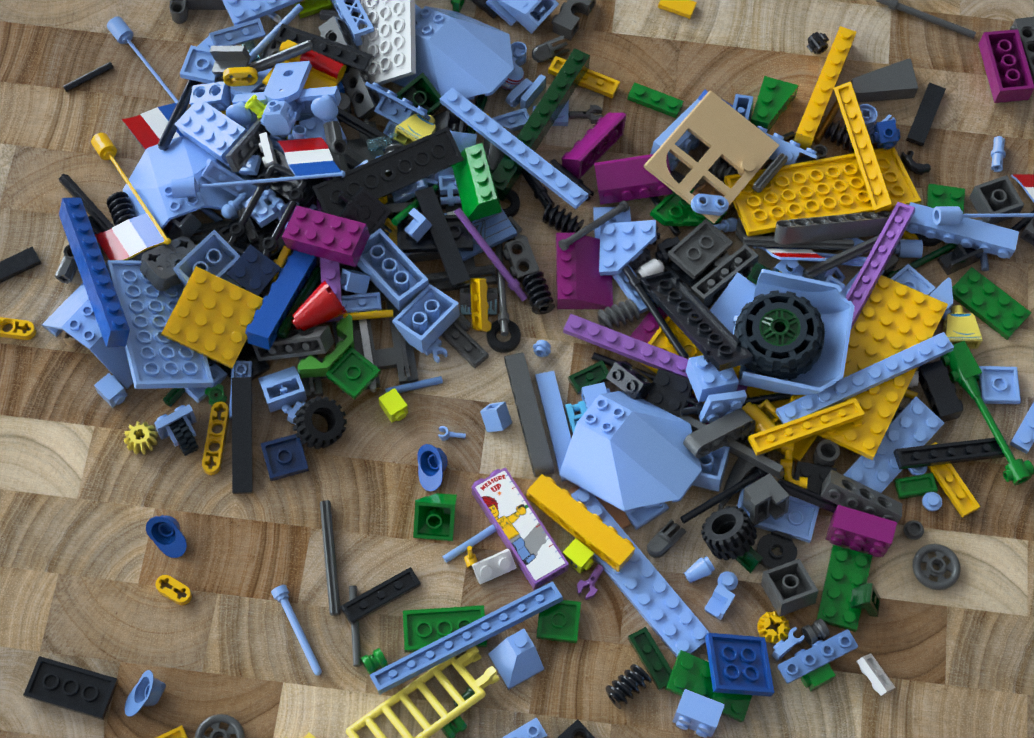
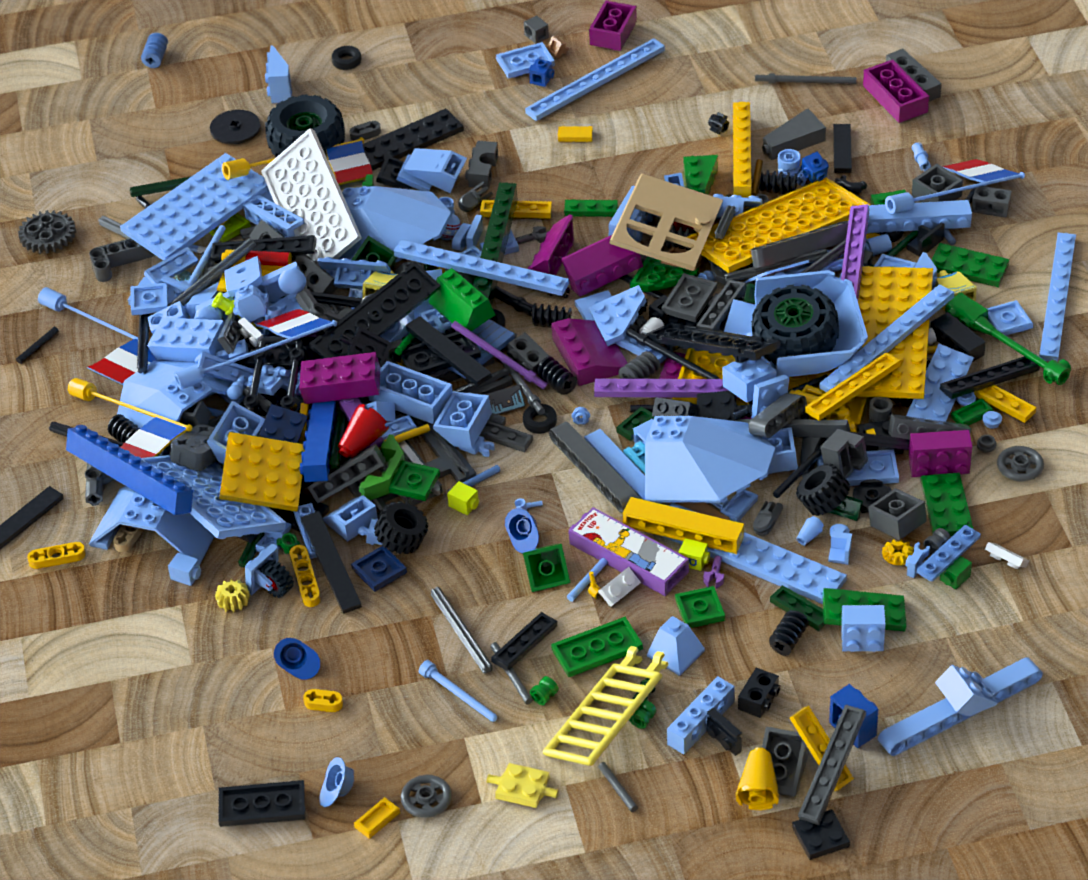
camera: 15 degrees left, 20 degrees down
(229, 57) = (176, 281): dark grey panel -> none
(240, 76) = (194, 291): yellow beam -> none
(380, 142) = (353, 301): clear light blue bar -> none
(418, 225) = (423, 346): light blue panel -> none
(466, 638) = (621, 641): medium blue plate -> none
(479, 304) = (507, 396): yellow plate -> none
(496, 417) = (564, 478): light blue panel -> none
(565, 243) = (565, 324): dark grey bar -> none
(710, 204) = (683, 254): light blue plate -> none
(739, 664) = (881, 581): blue plate -> none
(863, 147) = (799, 178): yellow plate -> none
(866, 598) = (969, 500): dark green slope -> none

